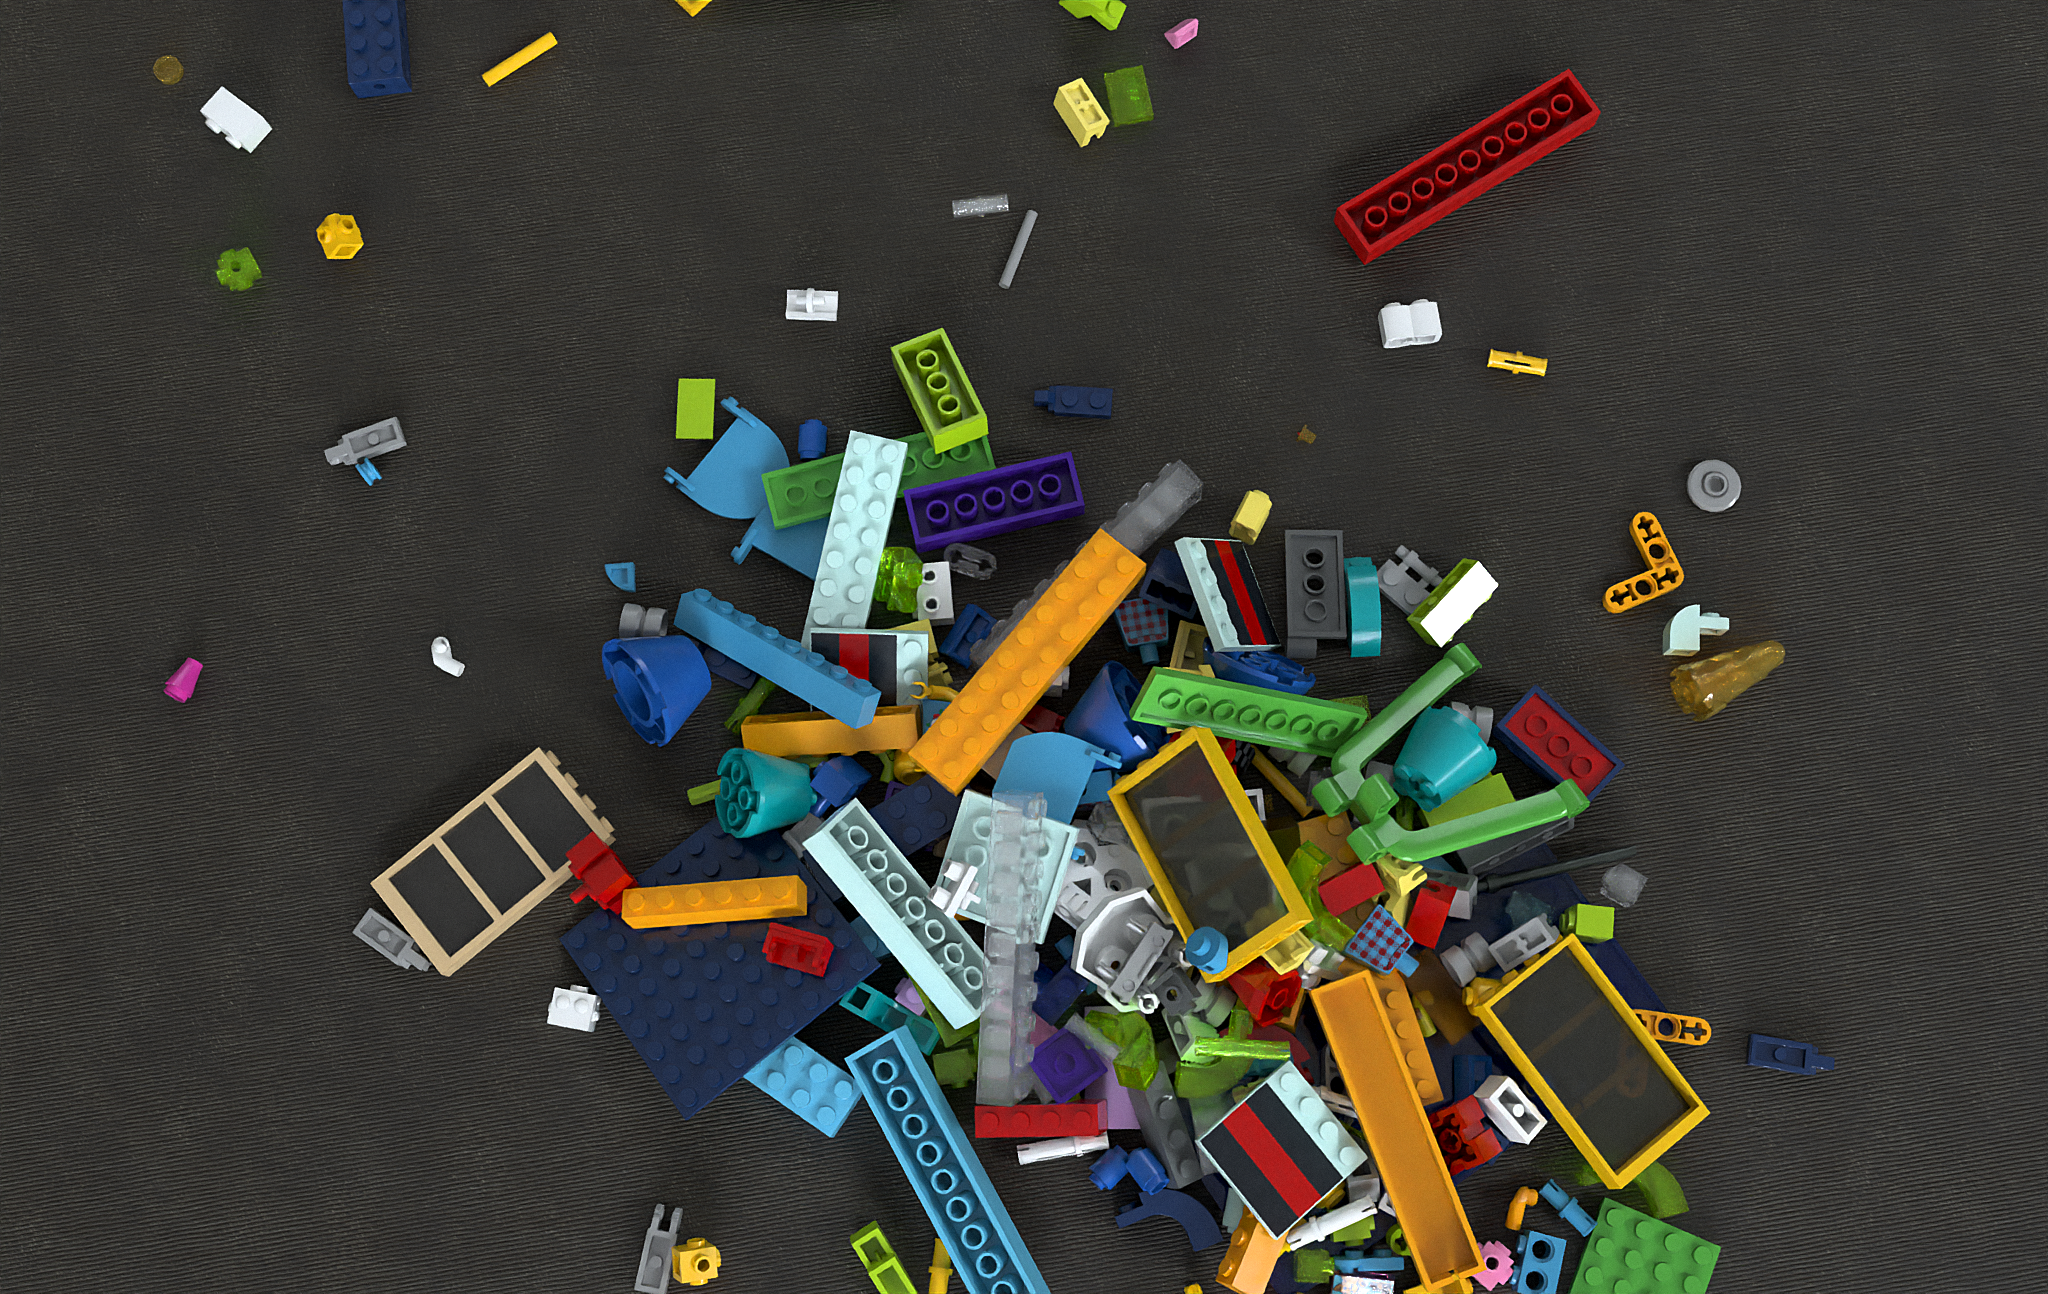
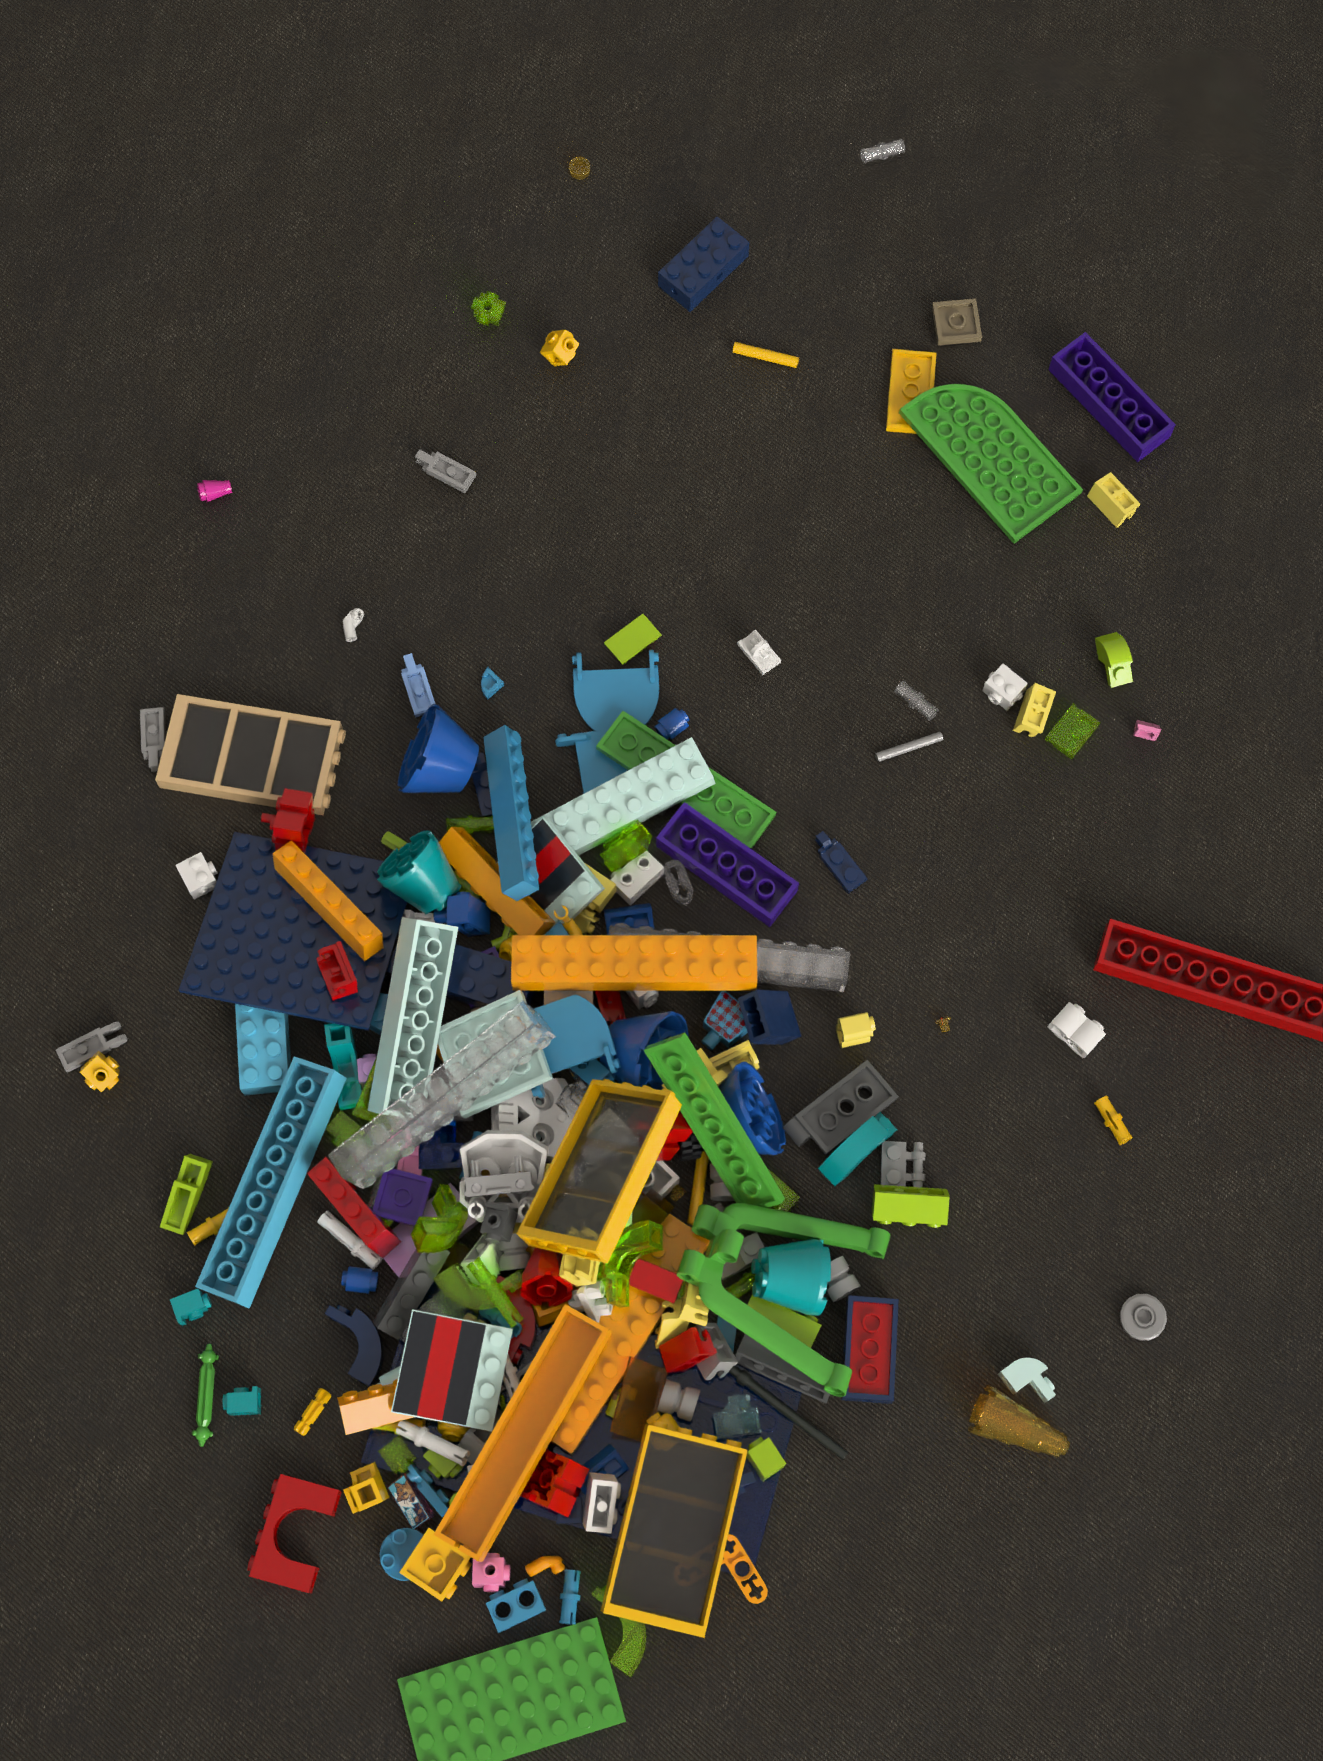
camera: 45 degrees right, 5 degrees down
(235, 119) = (580, 230): white brick -> none
(368, 471) = (428, 485): dark azure bush -> none
(566, 646) = (417, 686): none -> light blue hinge
(642, 623) = (468, 717): light grey wheel -> none
(939, 390) = (768, 772): lime brick -> none
(960, 889) = (441, 1036): white hips -> none
(1036, 119) = (1004, 687): none -> white head
(1093, 1037) = (430, 1195): clear pin -> none
(1147, 1170) = (374, 1301): blue brick -> none
(1207, 950) = (536, 1215): dark azure piece -> none
(1227, 594) = (787, 1054): plate -> none
(1381, 945) = (636, 1330): dark azure torso -> none
(1523, 942) = (715, 1422): light grey hinge -> none
(1622, 884) = (814, 1465): clear brick -> none
(1656, 567) = (1053, 1323): light orange beam -> none
(1786, 1055) = (790, 1667): dark blue hinge -> none

